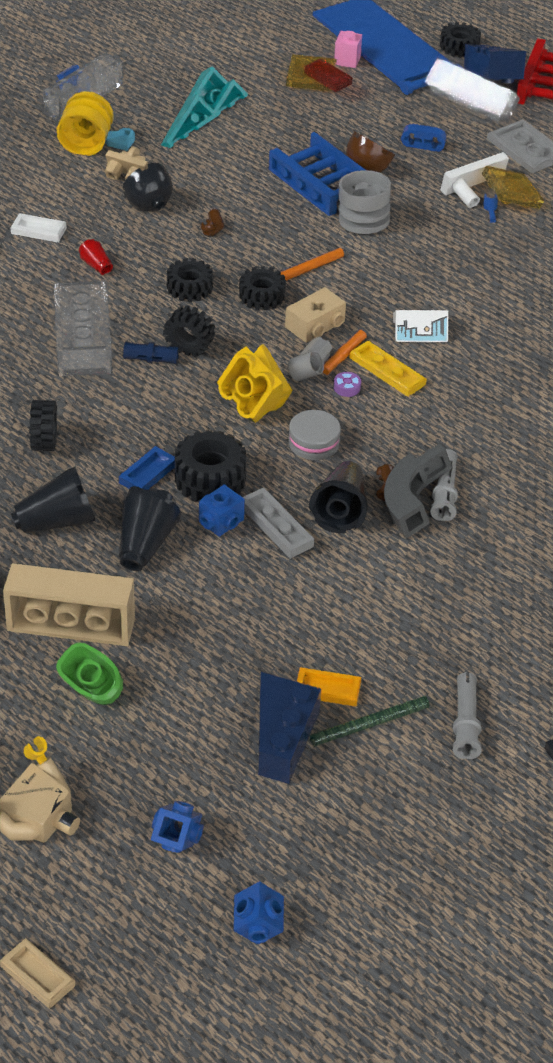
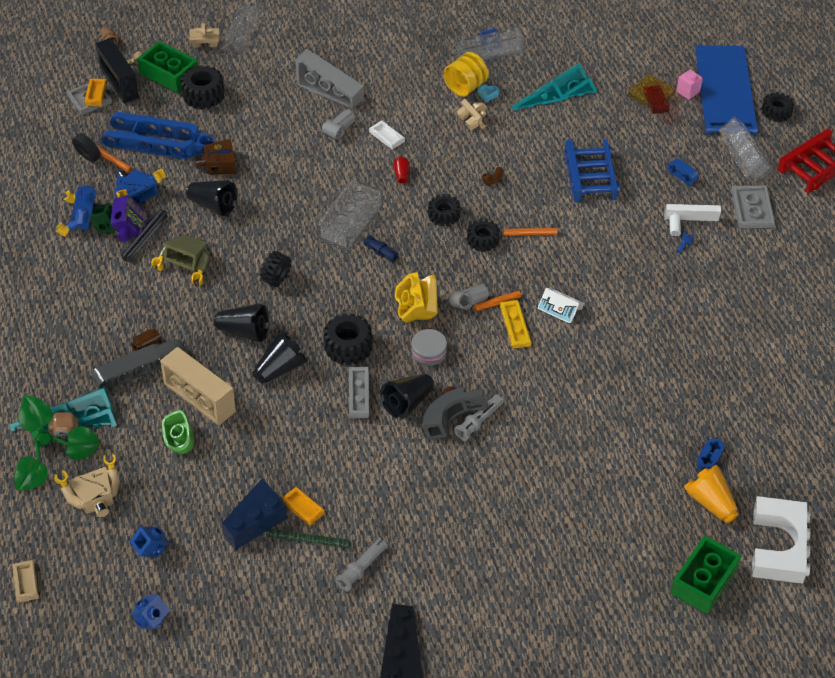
camera: 35 degrees right, 5 degrees up
(148, 188) = (469, 136): black cylinder -> none
(148, 469) = (313, 324): blue tile -> none
(196, 323) = (409, 245): black tyre -> none
(221, 510) = (330, 369): blue brick -> none
(315, 314) = (499, 268): tan brick -> none
(347, 384) = (480, 323): medium lavender tile -> none
(364, 202) = (594, 203): light grey wheel -> none
(368, 153) = (630, 169): reddish brown cylinder -> none
(495, 62) = (774, 136): dark blue wedge -> none
(512, 187) = (707, 233): clear yellow plate -> none

